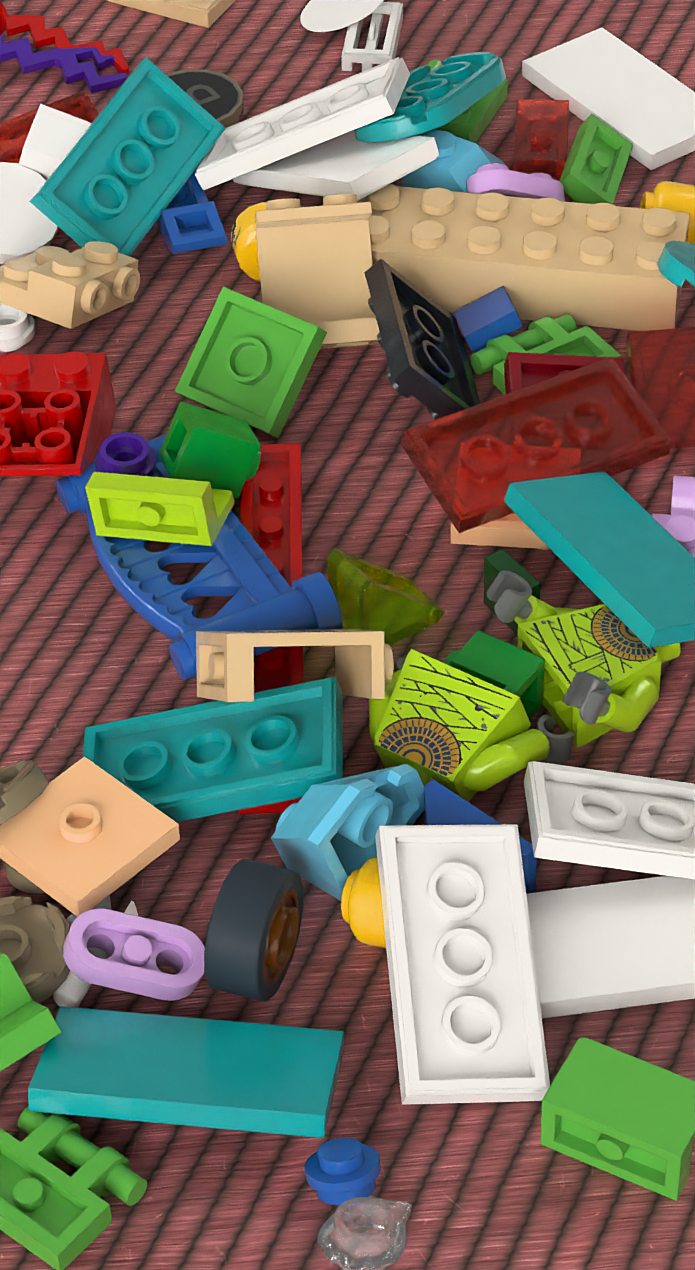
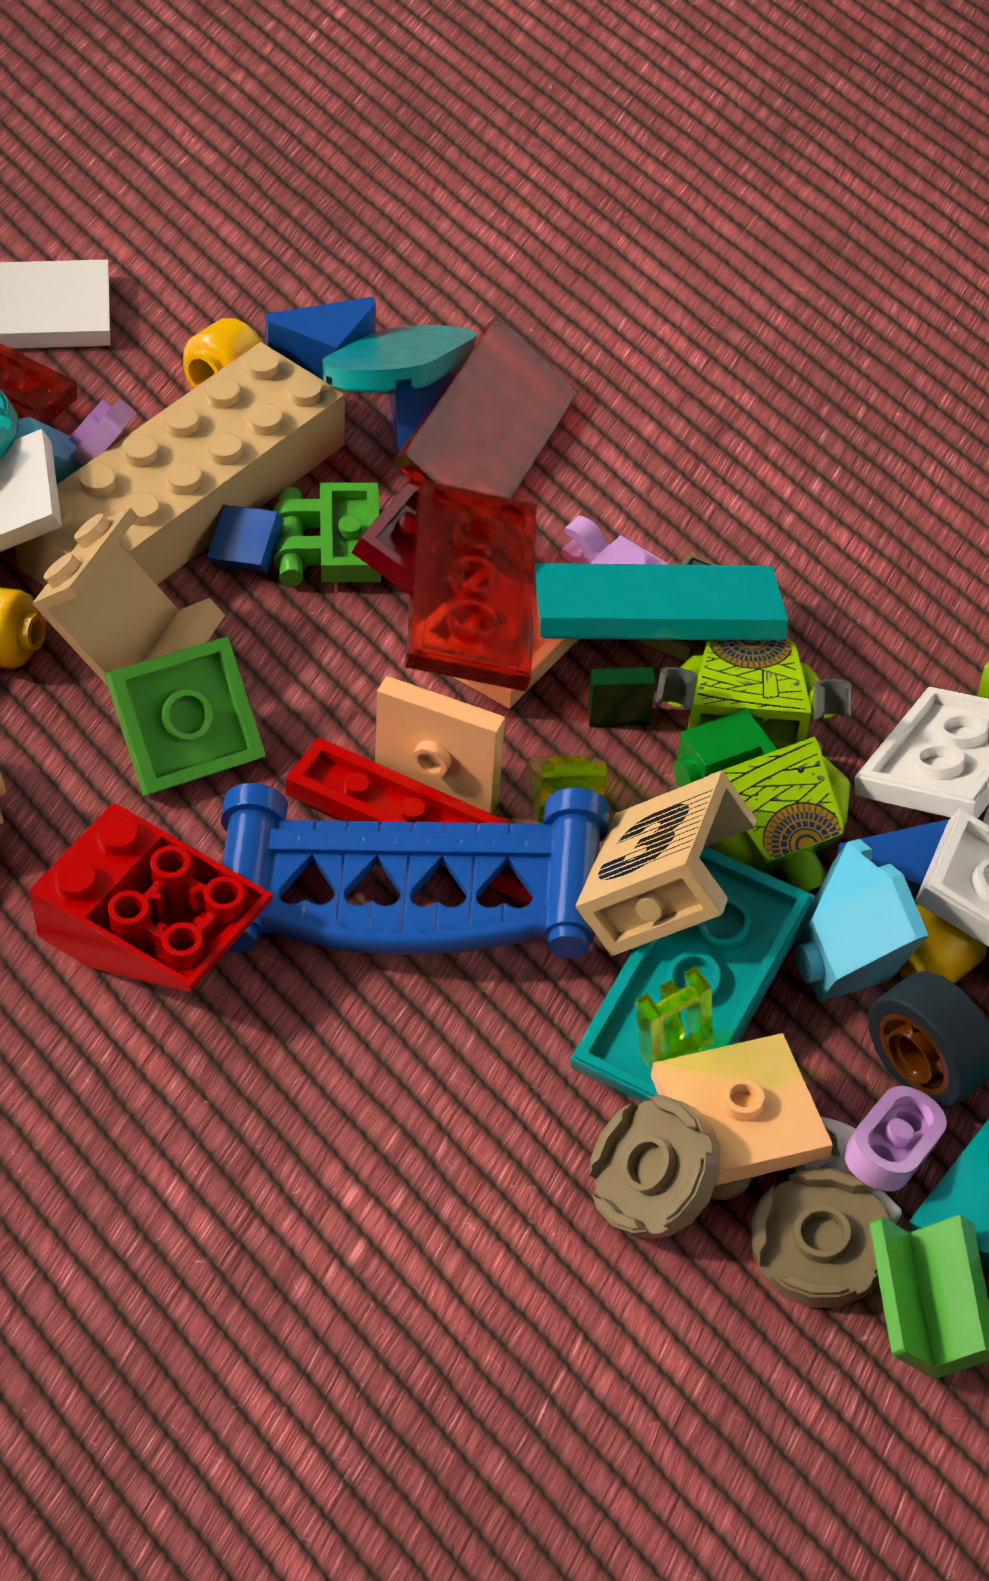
camera: 65 degrees left, 5 degrees up
(108, 731) = (663, 1024): none -> clear neon green tile
(126, 454) = (275, 848): dark purple plate -> none
(157, 508) = (364, 864): lime panel -> none
(210, 448) = (319, 792): green brick -> none
(329, 494) = (440, 742): none -> light nougat plate
(420, 344) = (272, 596): black plate -> none
(595, 163) = (93, 368): bright green plate -> none

